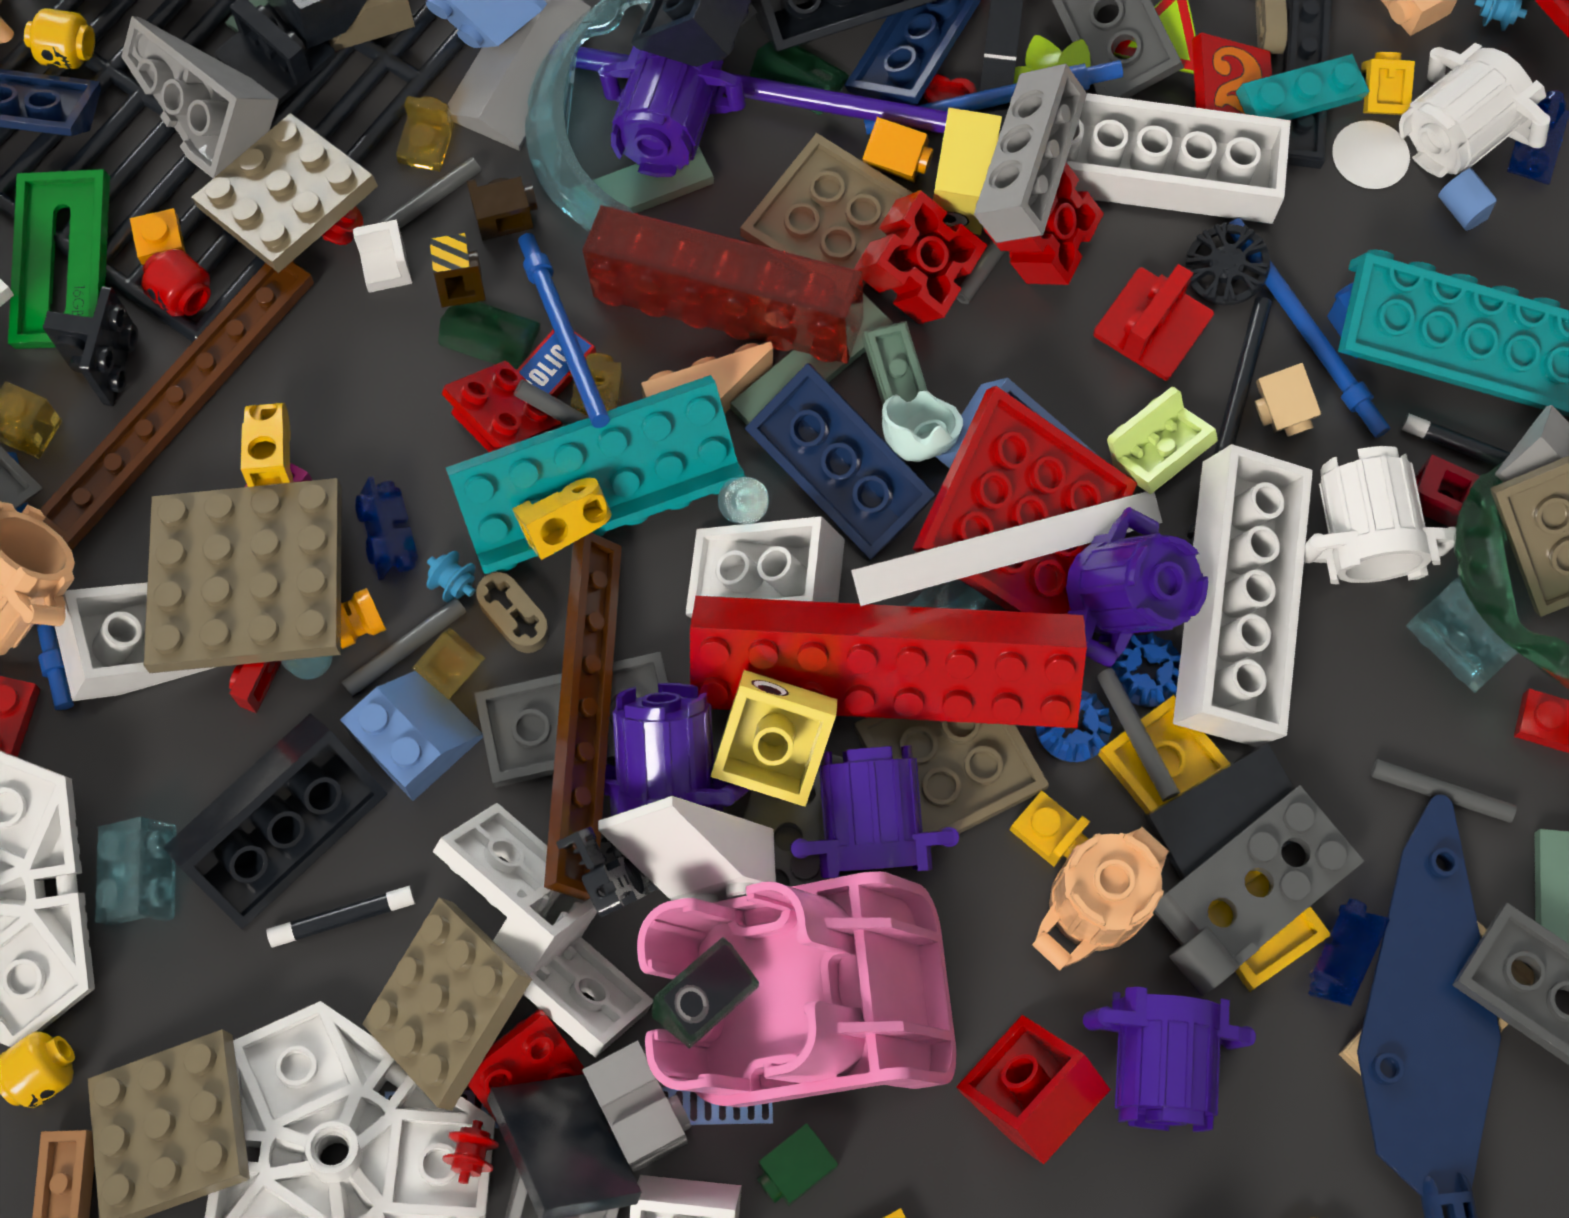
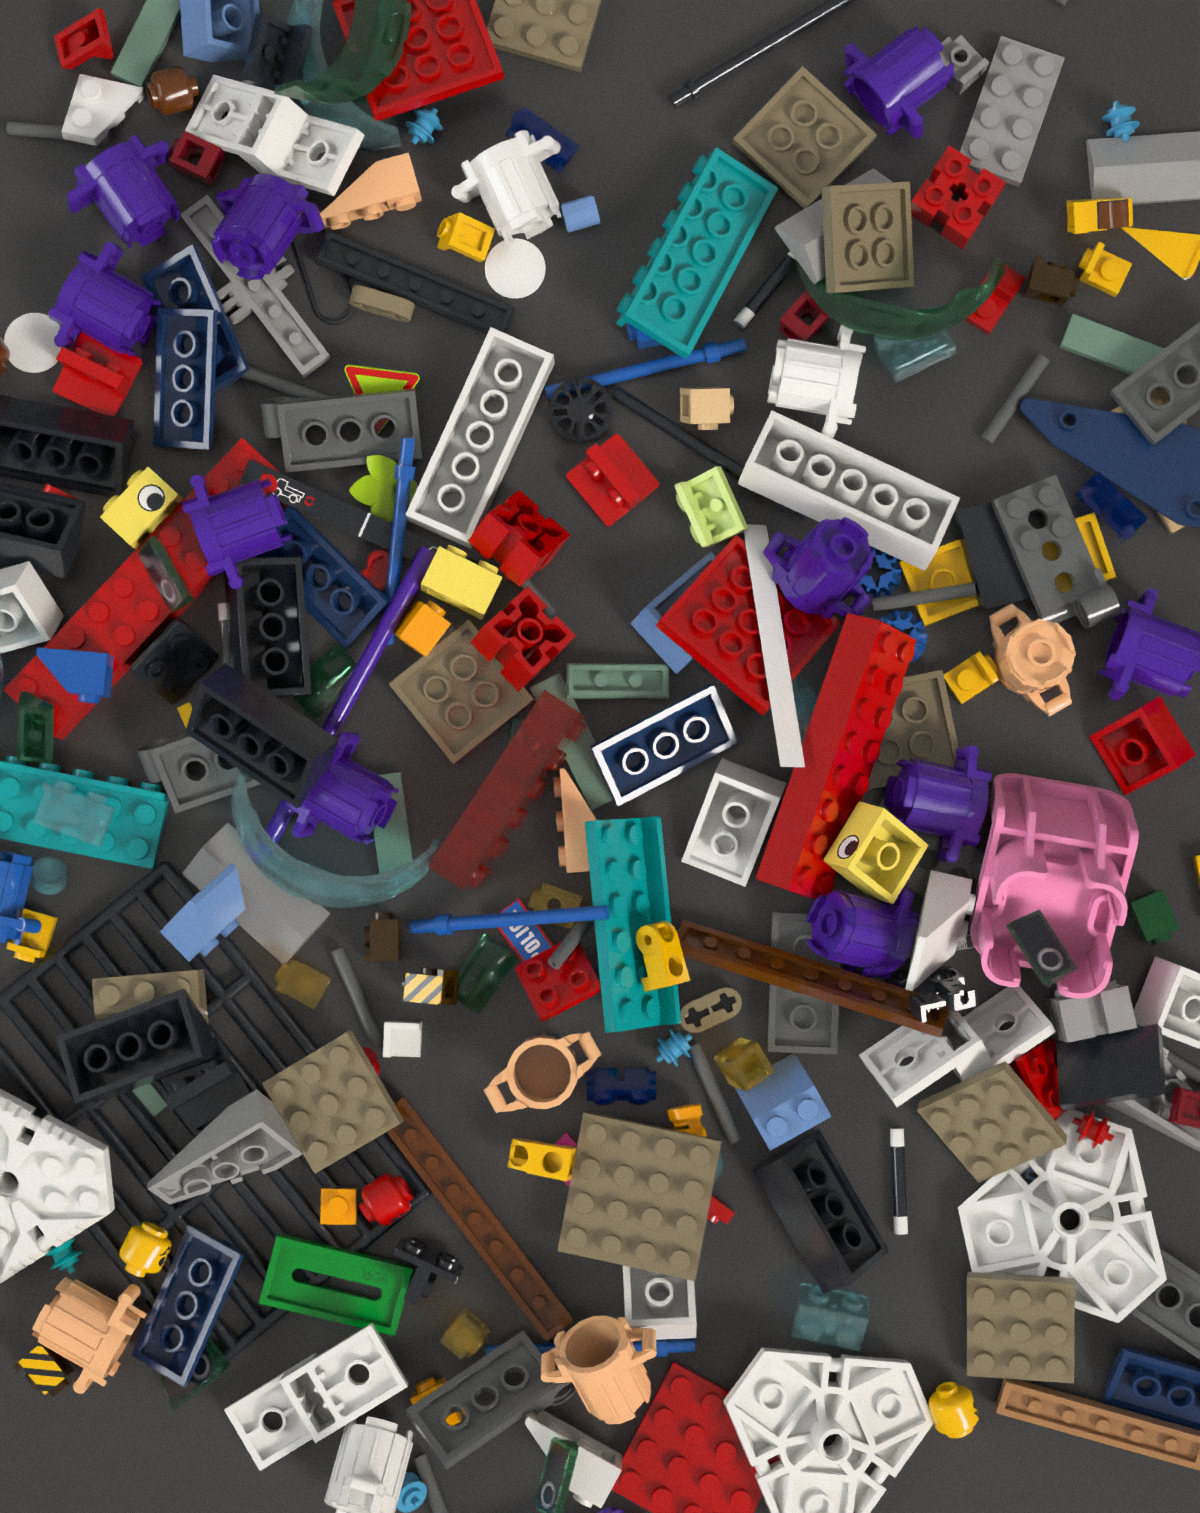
camera: 70 degrees left, 15 degrees up
(375, 406) = (542, 1072): none -> light nougat container
(743, 500) = (677, 823): clear light blue wheel -> none
(920, 427) = (660, 679): light aqua hair -> none
(1030, 154) = (473, 519): light grey brick -> none
(1222, 68) = (436, 354): red tile -> none
(1304, 90) = (459, 305): teal plate -> none

